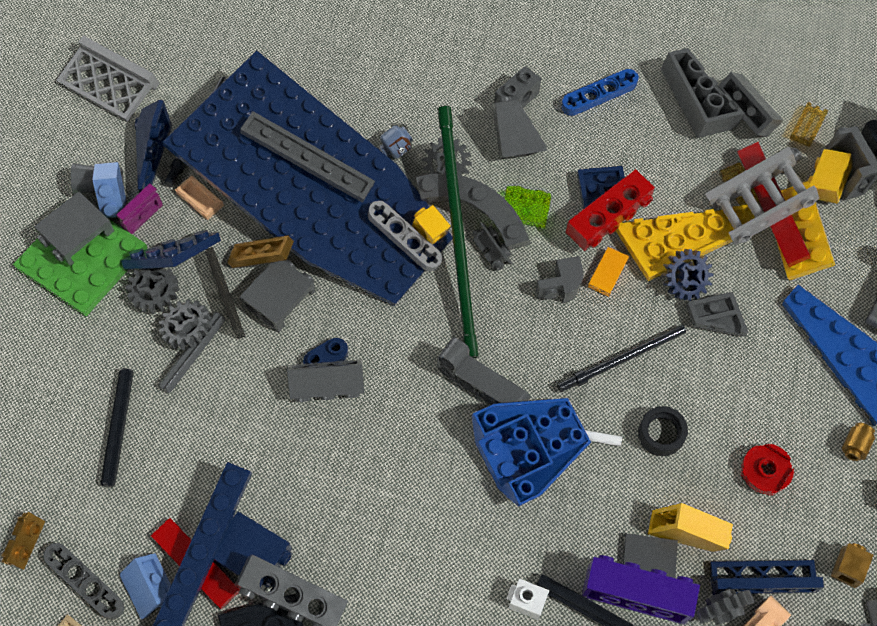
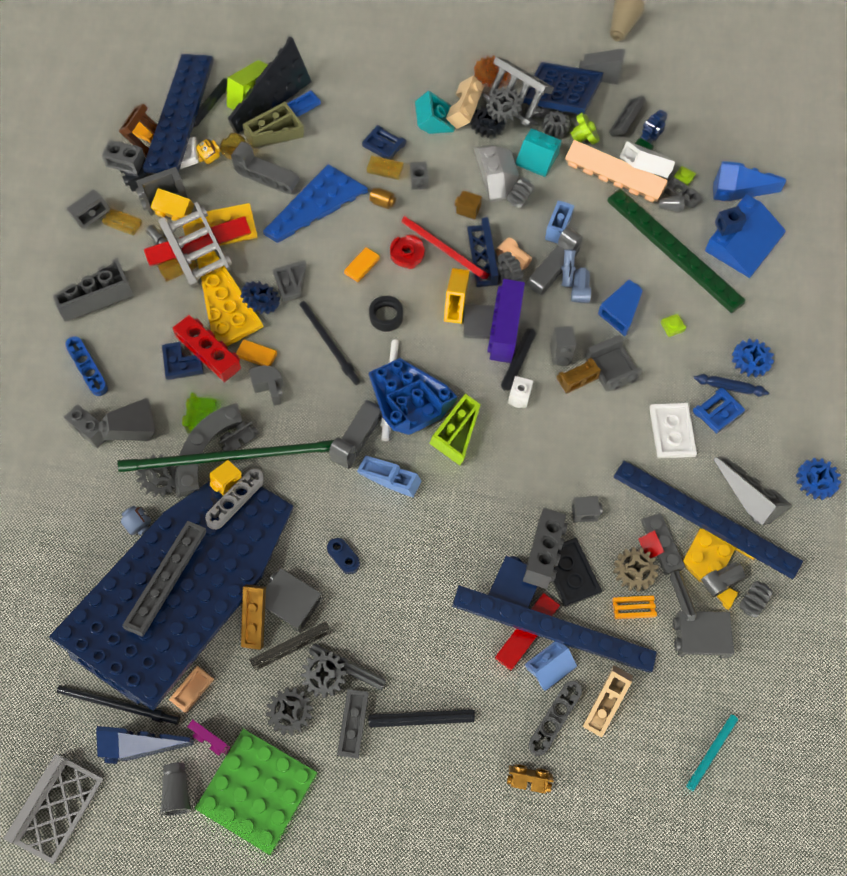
camera: 95 degrees left, 0 degrees up
(72, 227) = (235, 794): dark grey panel -> none
(109, 188) = (192, 767): medium blue brick -> none
(126, 352) = (353, 724): none -> dark grey plate
(171, 251) = (257, 698): dark blue plate -> none
(325, 380) = (367, 548): dark grey brick -> none
(421, 416) = (390, 475): none -> medium blue slope
(475, 503) = (456, 430): none -> lime wedge
(745, 407) = (362, 264): none -> light orange tile
(757, 111) = (117, 248): dark grey brick -> none
(769, 520) = (445, 248): none -> red tile
(822, 84) = (88, 209): none -> dark grey brick

